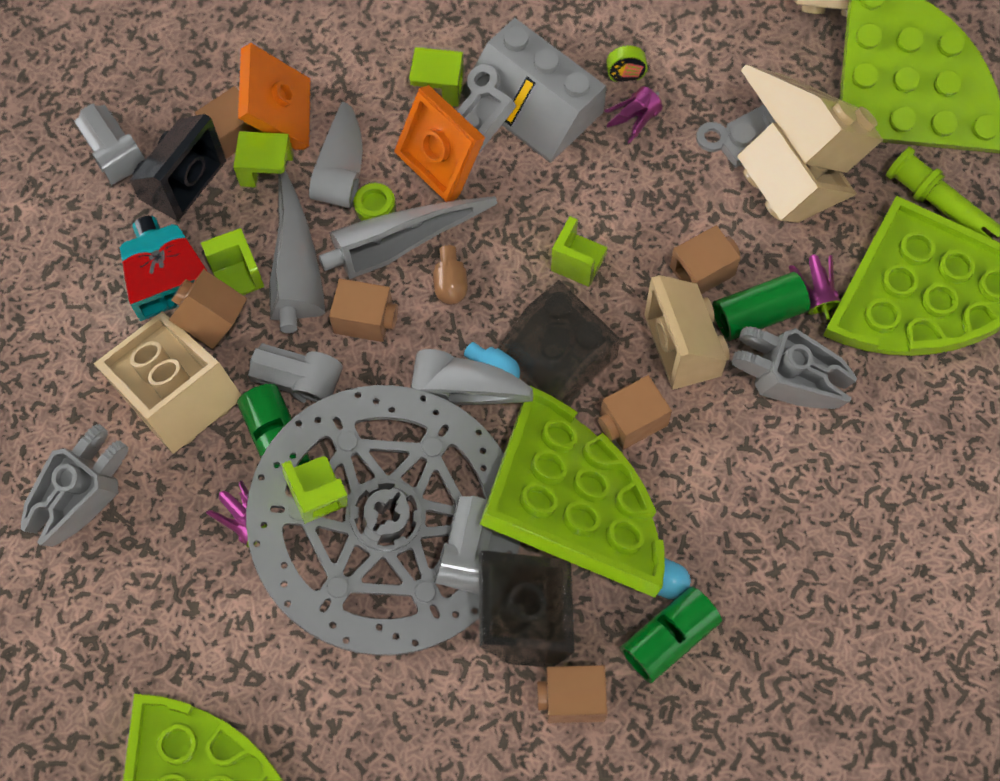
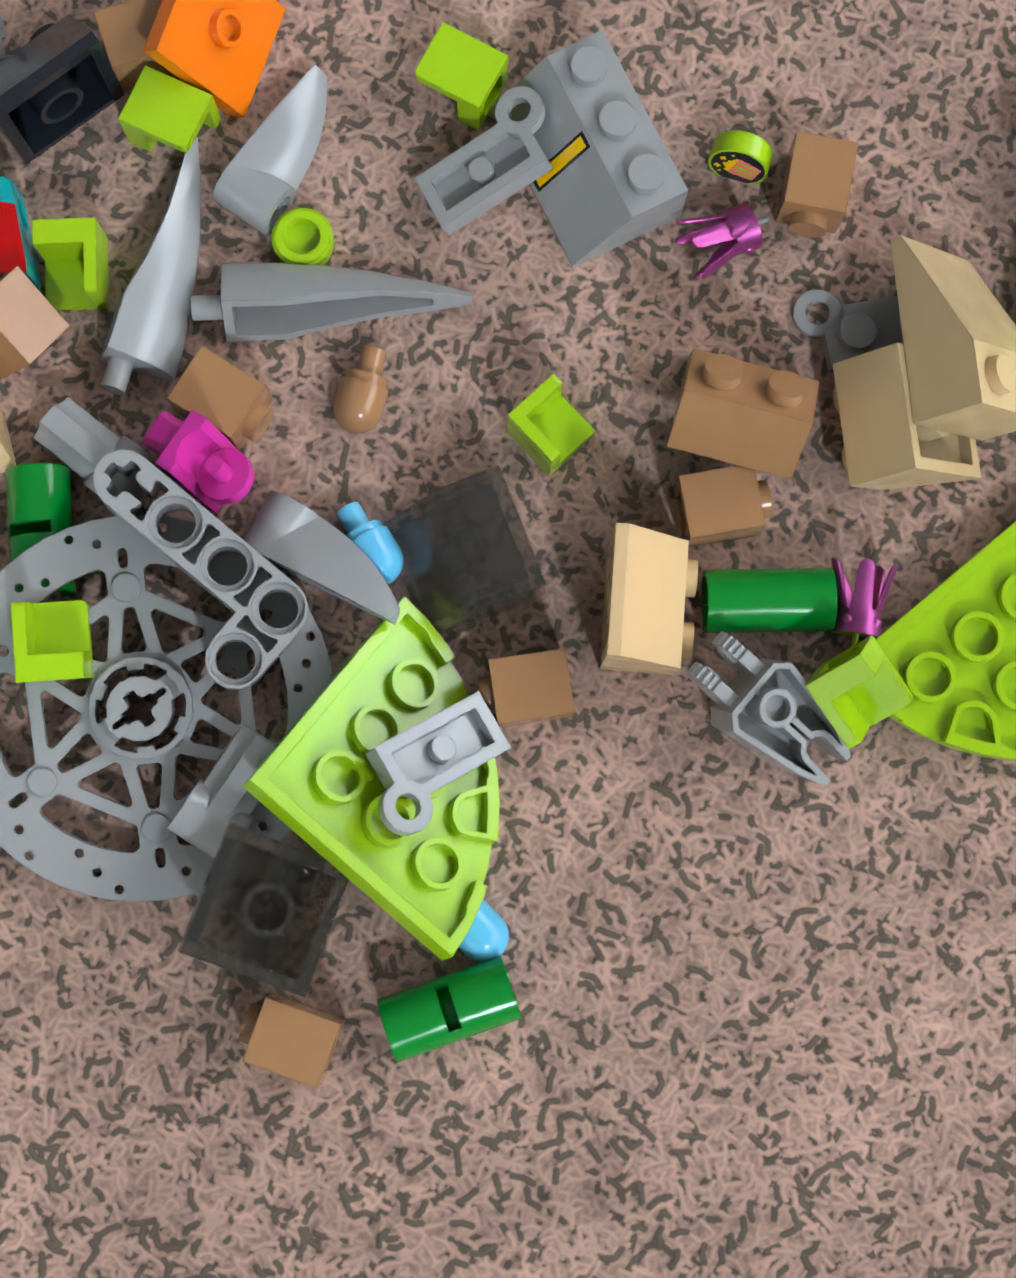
camera: 15 degrees right, 15 degrees up
(366, 346) = (200, 459): none -> dark pink hips
(387, 403) = (195, 557): none -> light grey beam
(439, 144) = (417, 189): orange plate -> none
(594, 467) = (432, 757): none -> hinge
(679, 62) = (816, 184): none -> medium nougat brick
(696, 195) = (743, 413): none -> medium nougat slope
(845, 332) = (858, 690): none -> lime panel

